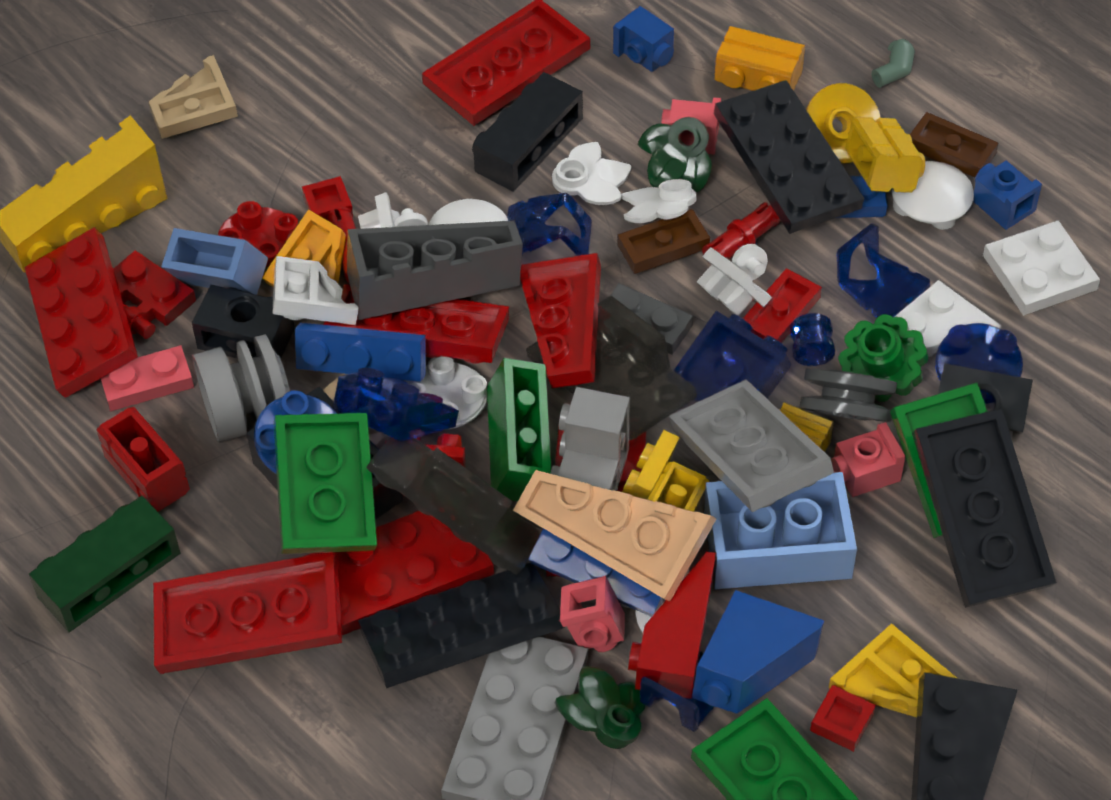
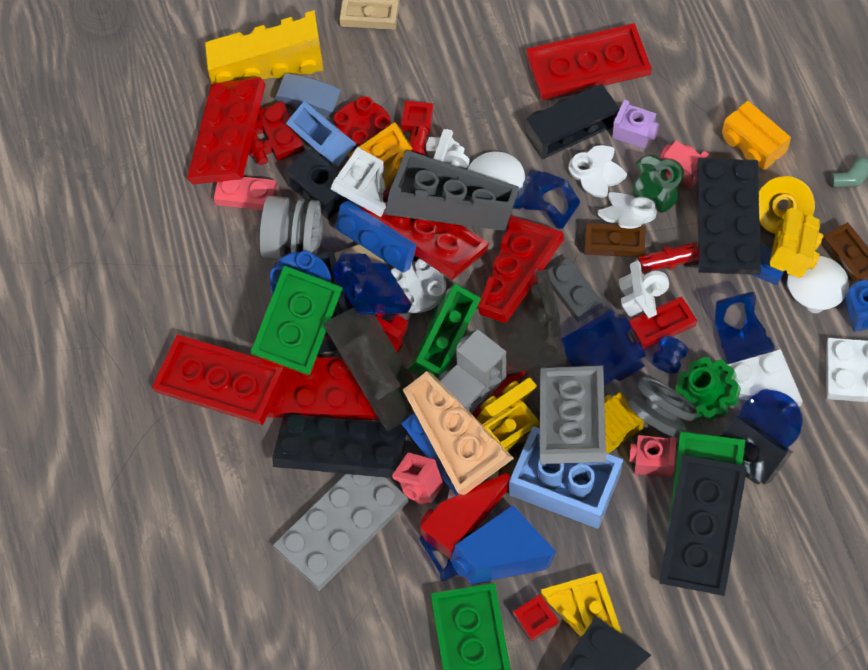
camera: 30 degrees right, 10 degrees up
(104, 563) = (157, 307): dark green brick -> none
(143, 458) = (210, 250): red brick -> none
(151, 229) = (319, 95): none -> sand blue slope
(604, 708) = (394, 535): dark green plate -> none
(609, 107) = (635, 125): none -> lavender brick
(644, 39) = (687, 84): blue brick -> none

